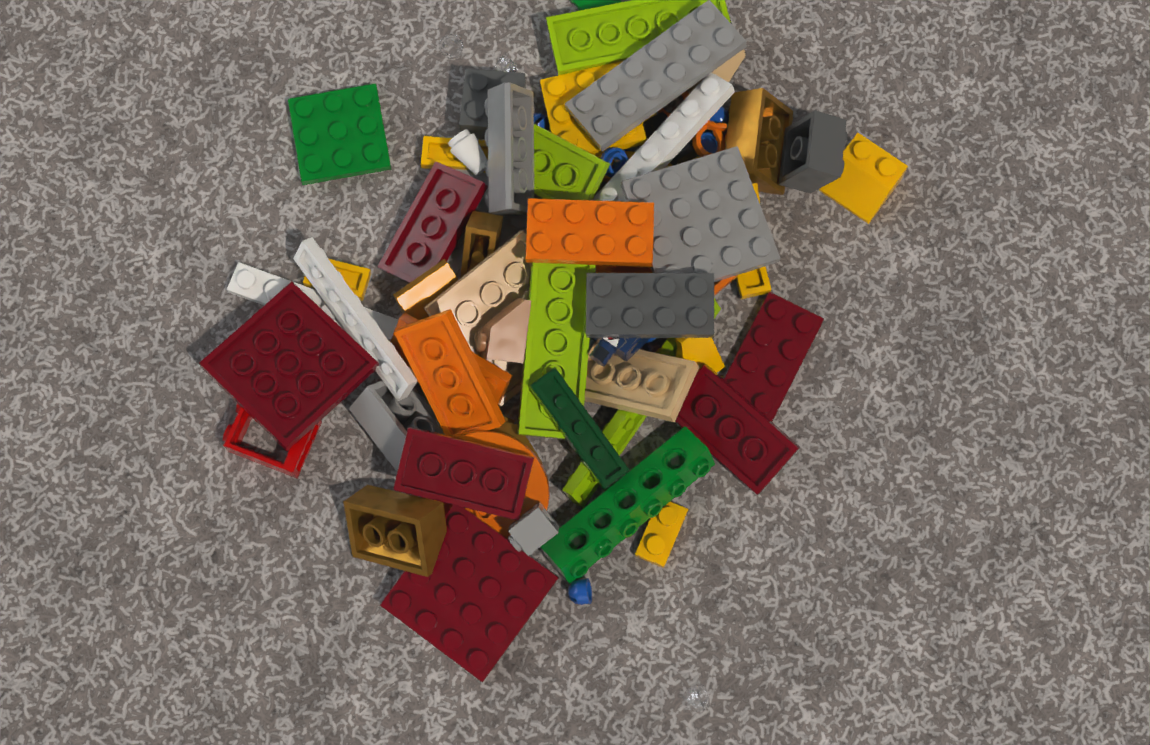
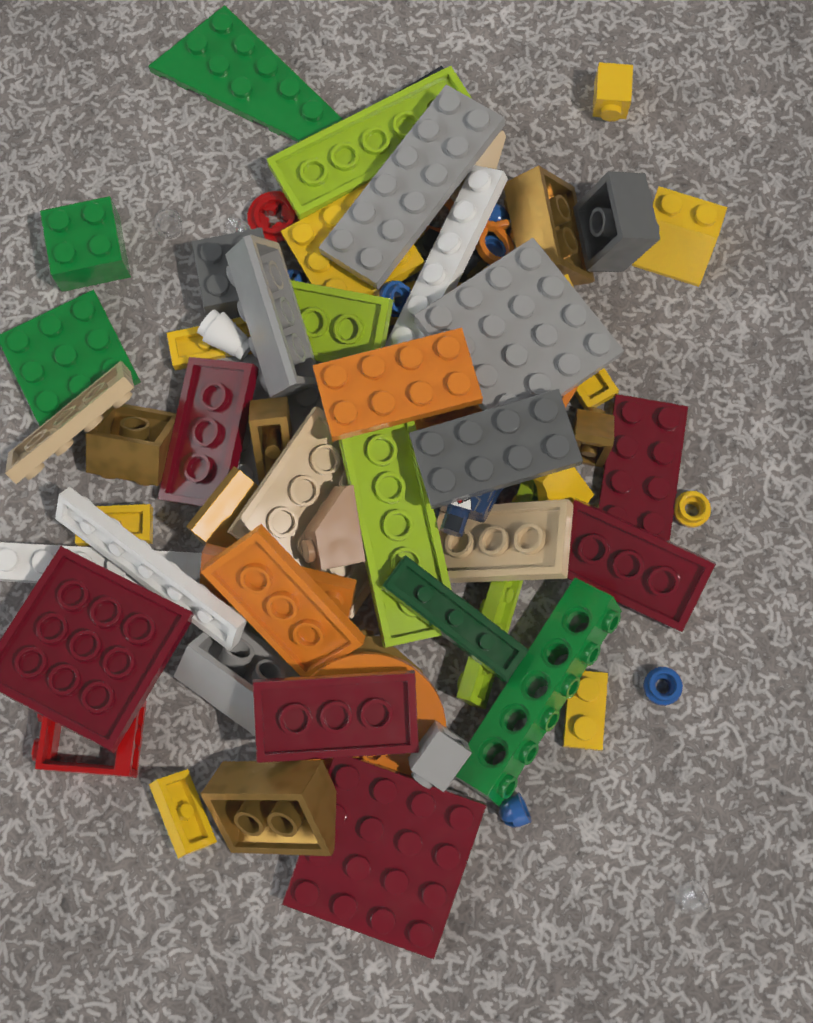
camera: 15 degrees left, 0 degrees up
(324, 514) = (182, 813): none -> yellow plate
(332, 183) = (78, 415): none -> tan plate
(368, 216) = (130, 444): none -> pearl gold slope
(380, 44) = (85, 244): none -> green brick
(536, 53) = (270, 204): none -> red gear
(728, 522) = (673, 680): none -> blue plate
(735, 319) = (594, 435): none -> pearl gold slope
(806, 395) = (696, 499): none -> yellow plate
(850, 40) = (612, 91): none -> yellow brick

